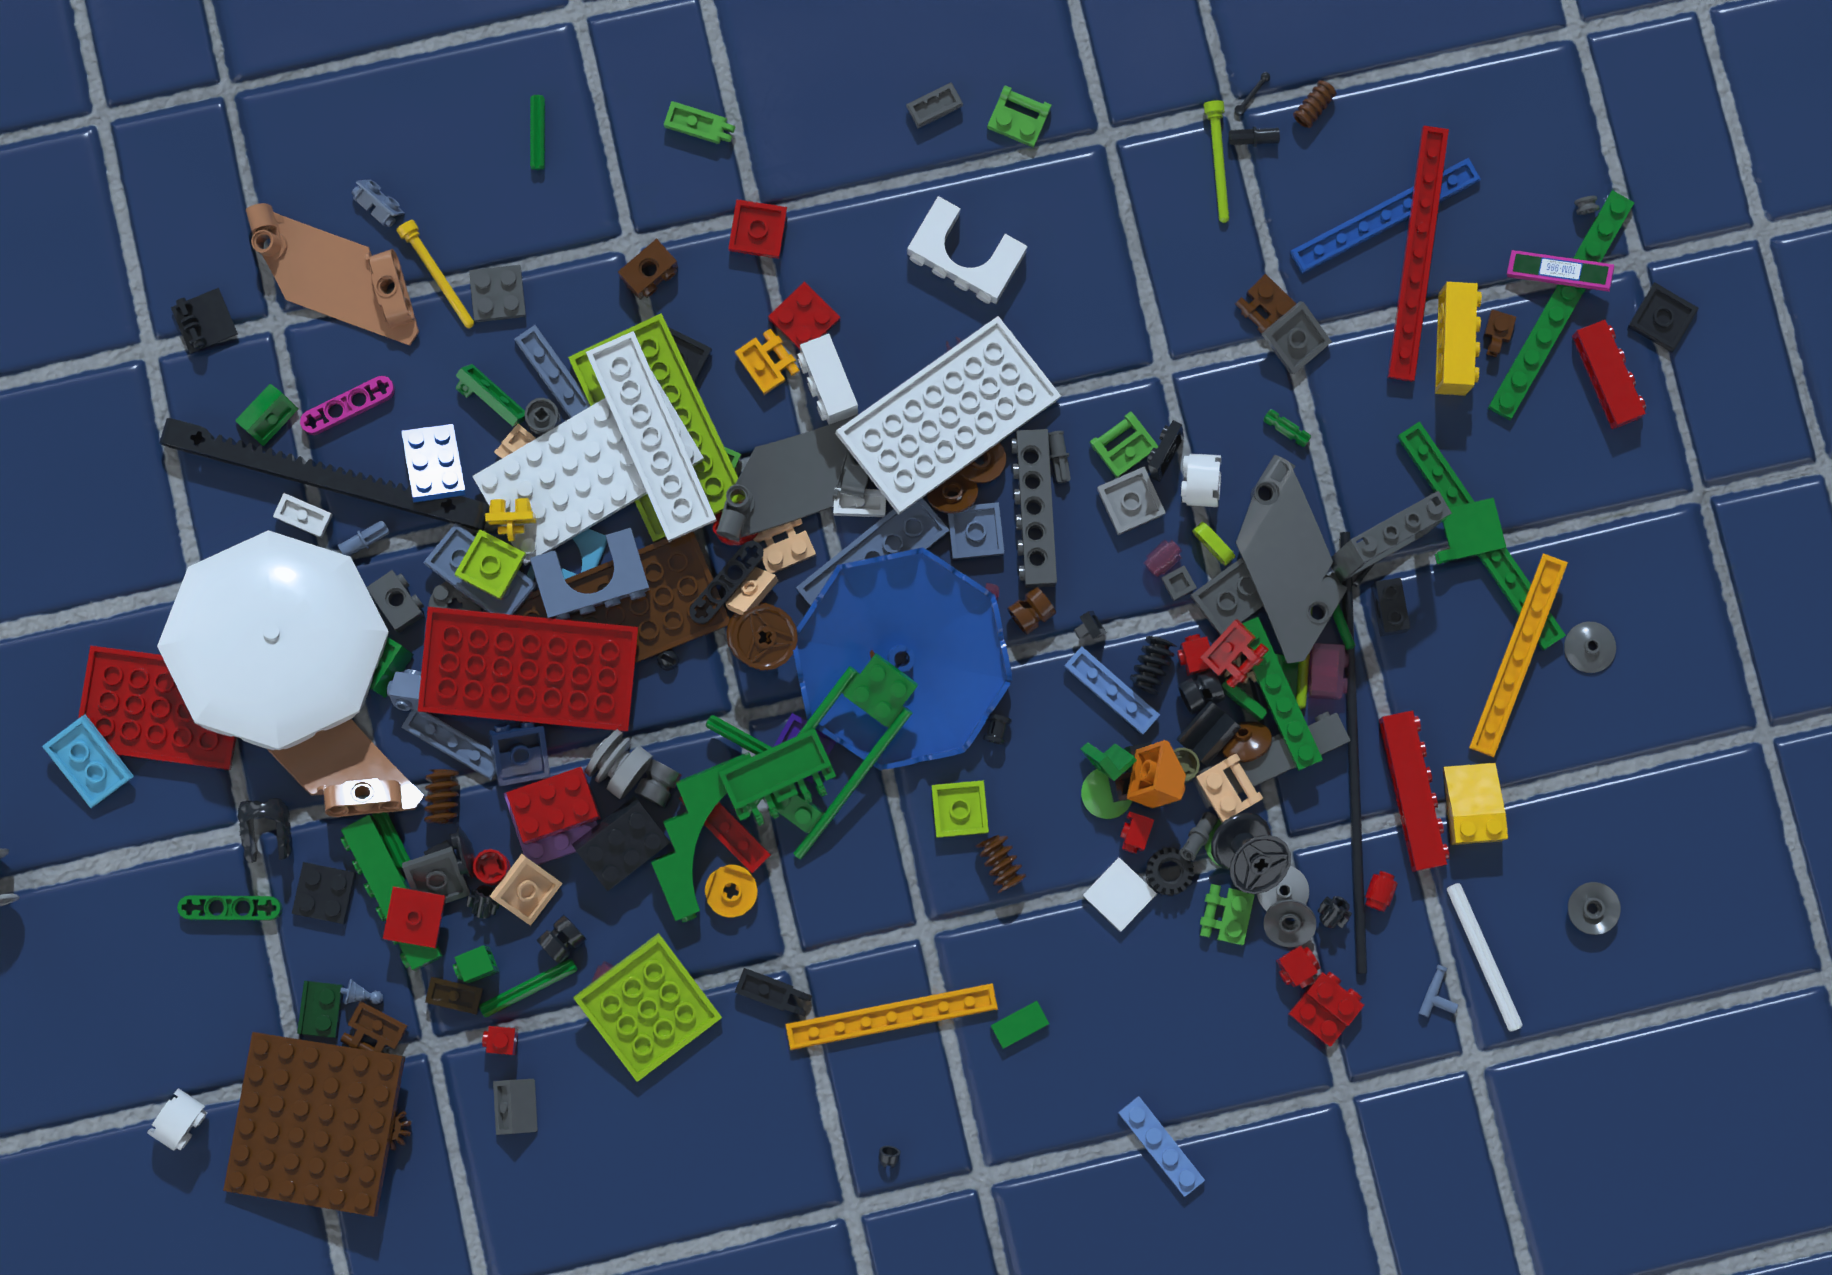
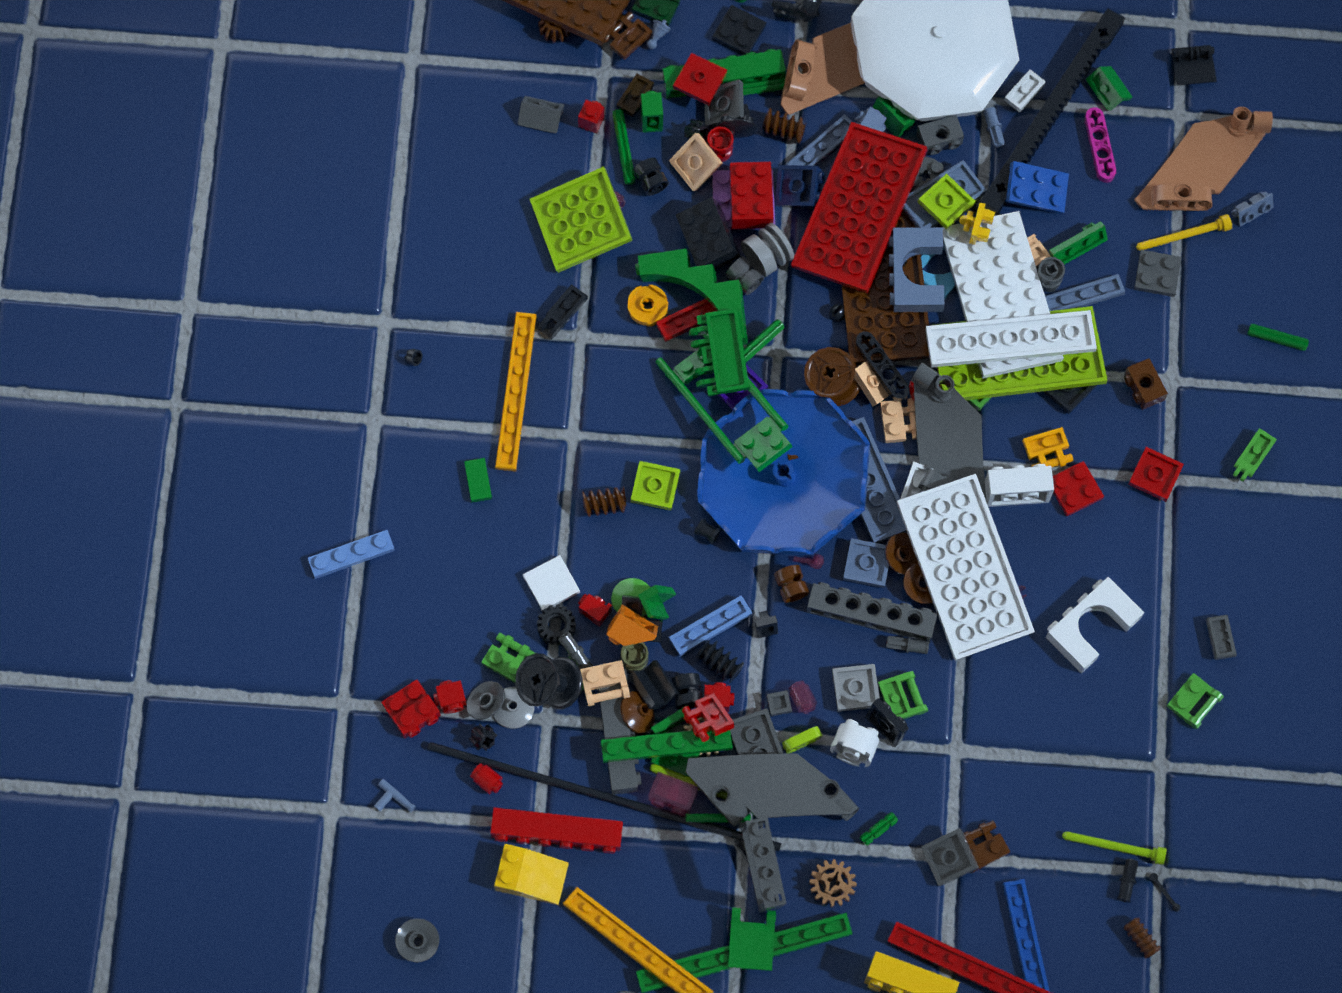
camera: 110 degrees right, 10 degrees down
(1358, 458) = (825, 880): none -> medium nougat gear
(1390, 607) = (708, 859): black brick -> none
(1484, 957) = (410, 843): white axle -> none

